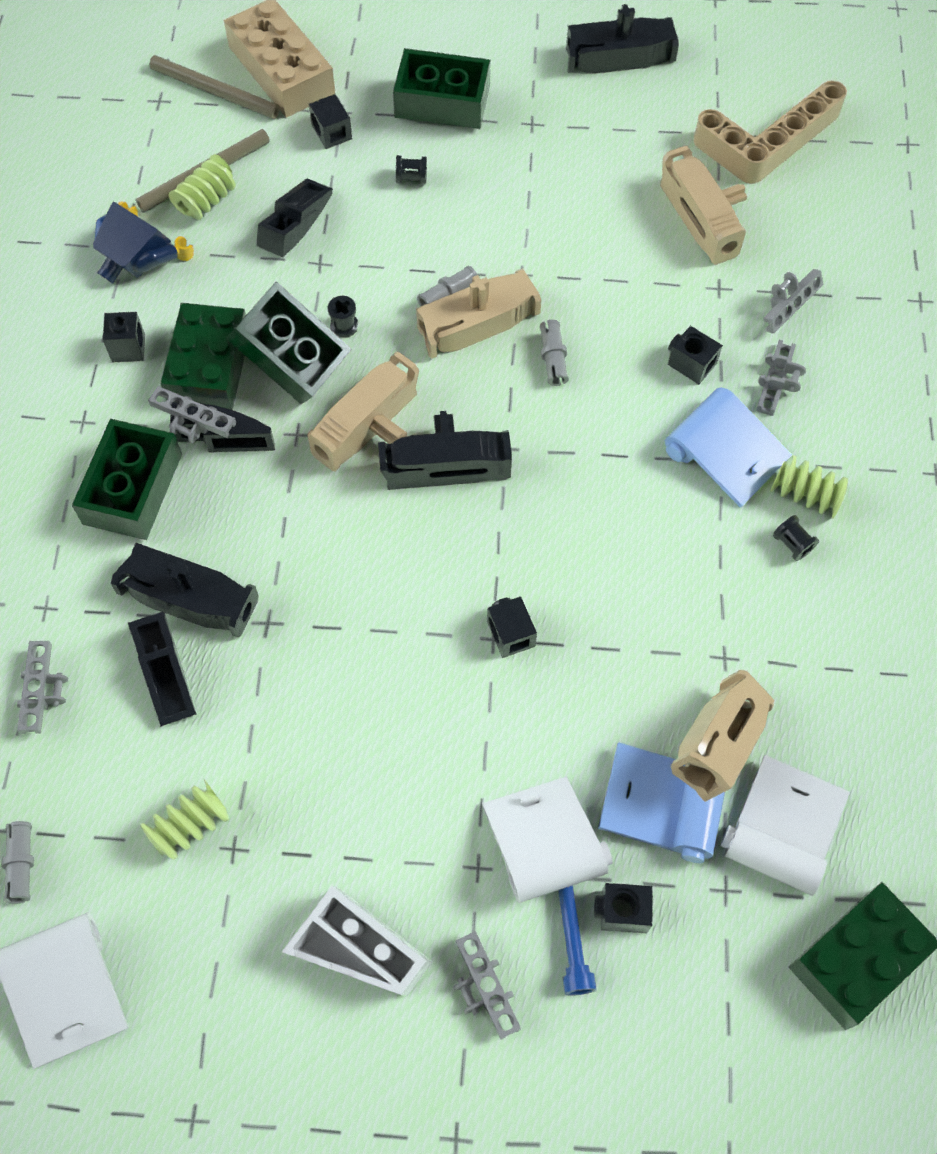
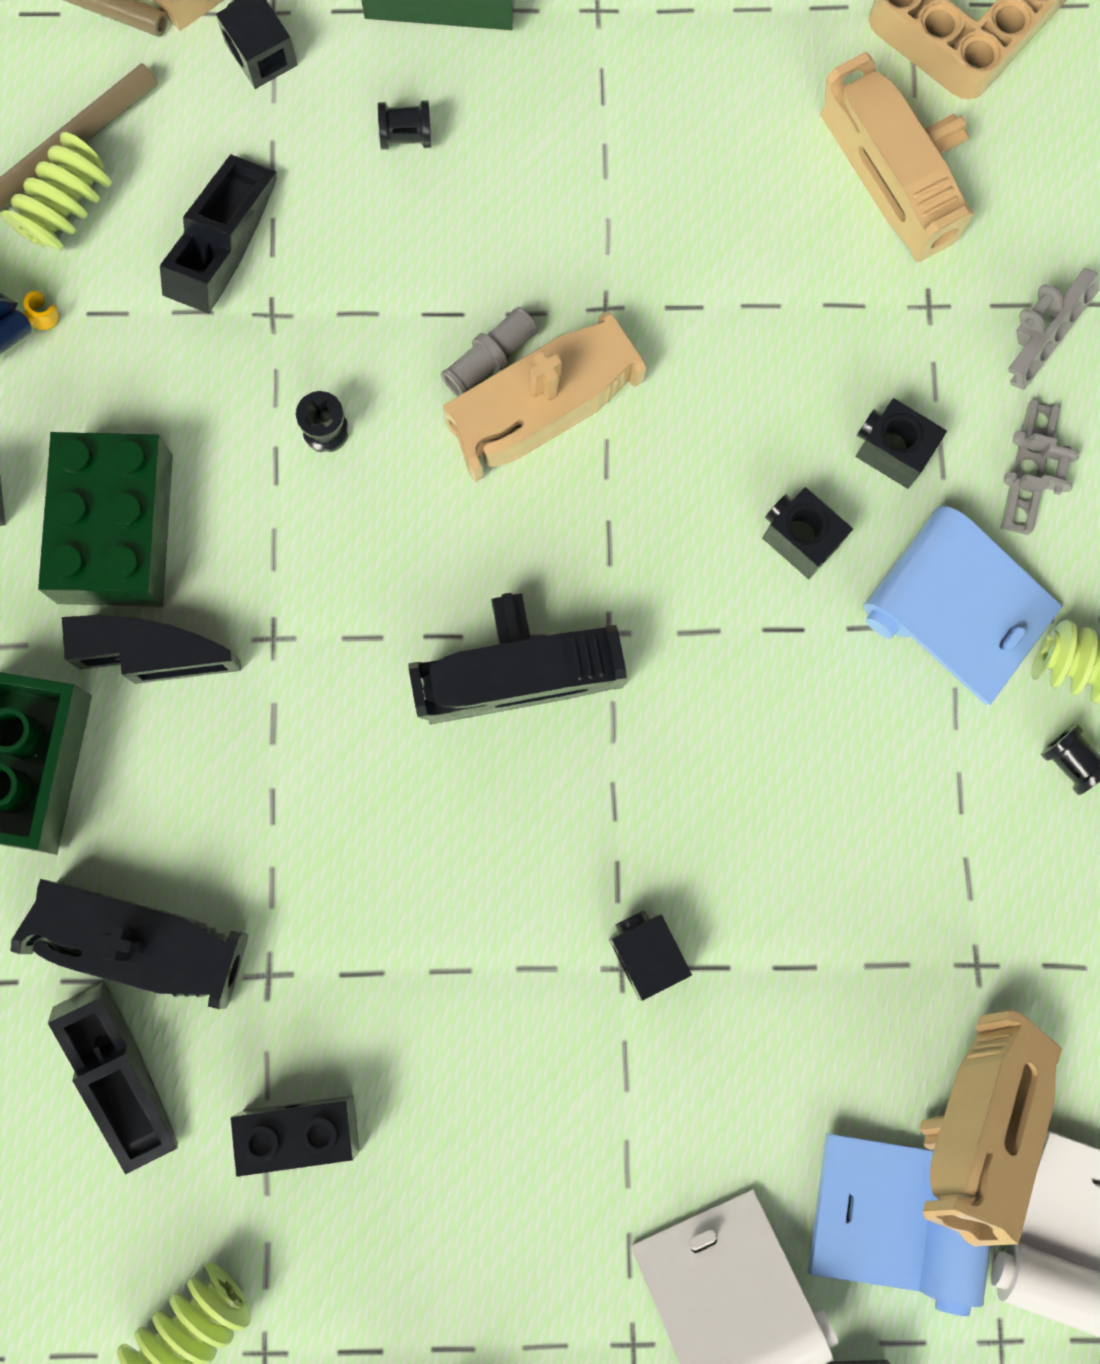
camera: 10 degrees left, 15 degrees up
(201, 425) = (78, 646): light grey piece -> none
(272, 708) = (295, 1135): none -> black brick
(289, 343) = (240, 496): dark green brick -> none
(365, 413) = (382, 603): tan piece -> none
(554, 353) = (673, 457): light grey pin -> none
(636, 409) = (828, 527): none -> black brick

